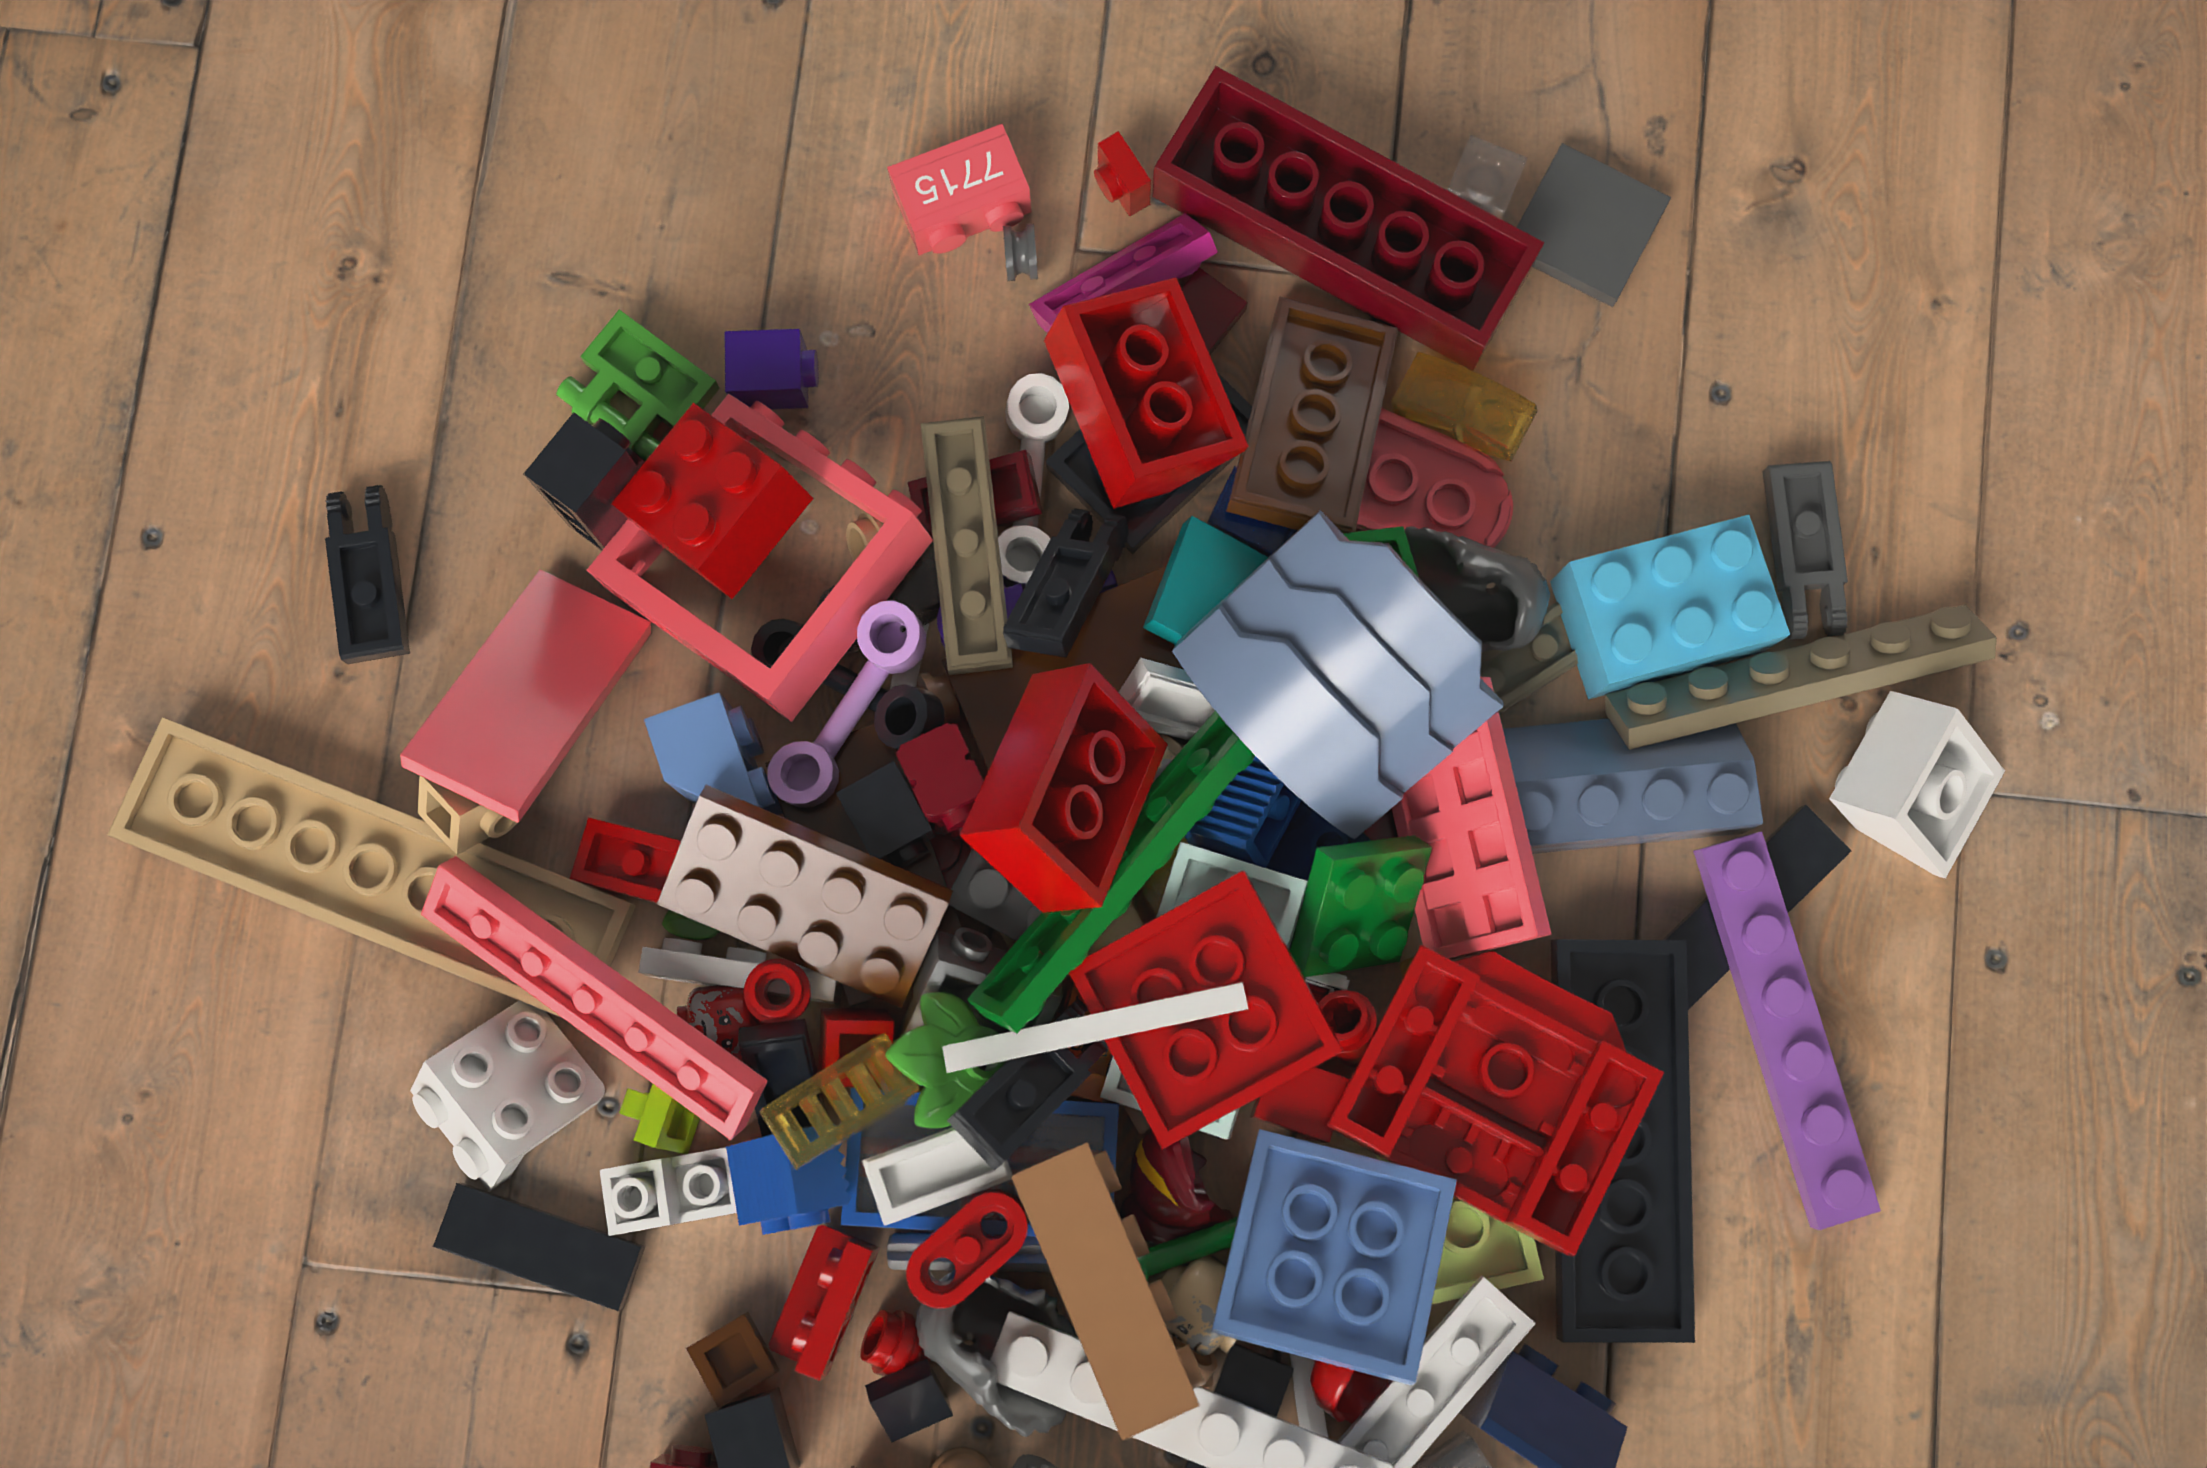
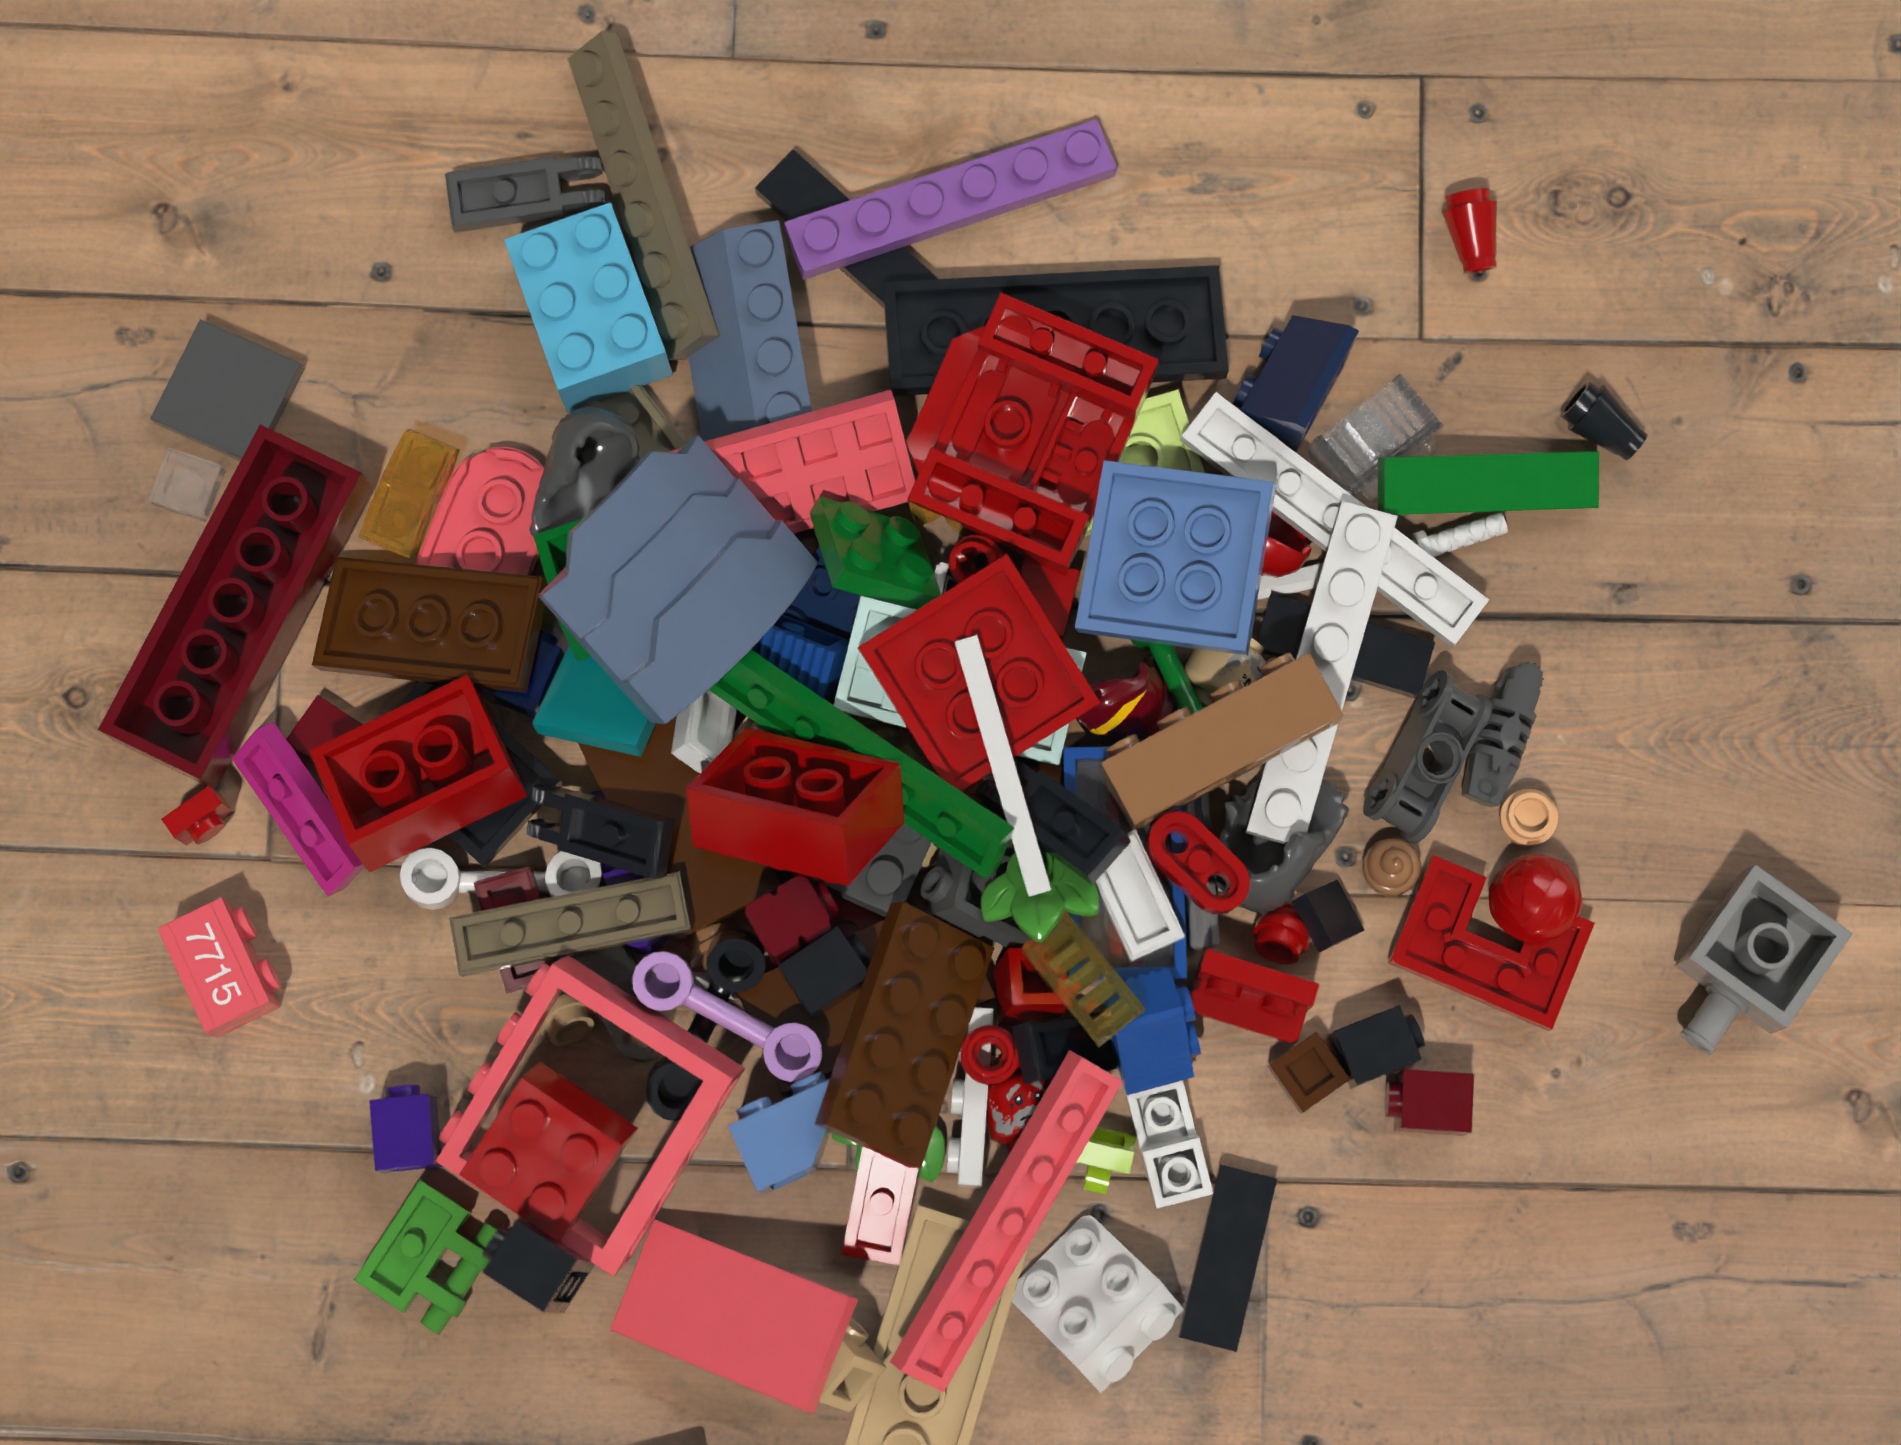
camera: 95 degrees left, 0 degrees up
(1020, 252) = (278, 906): dark grey bush -> none
(1918, 781) = (729, 95): white slope -> none

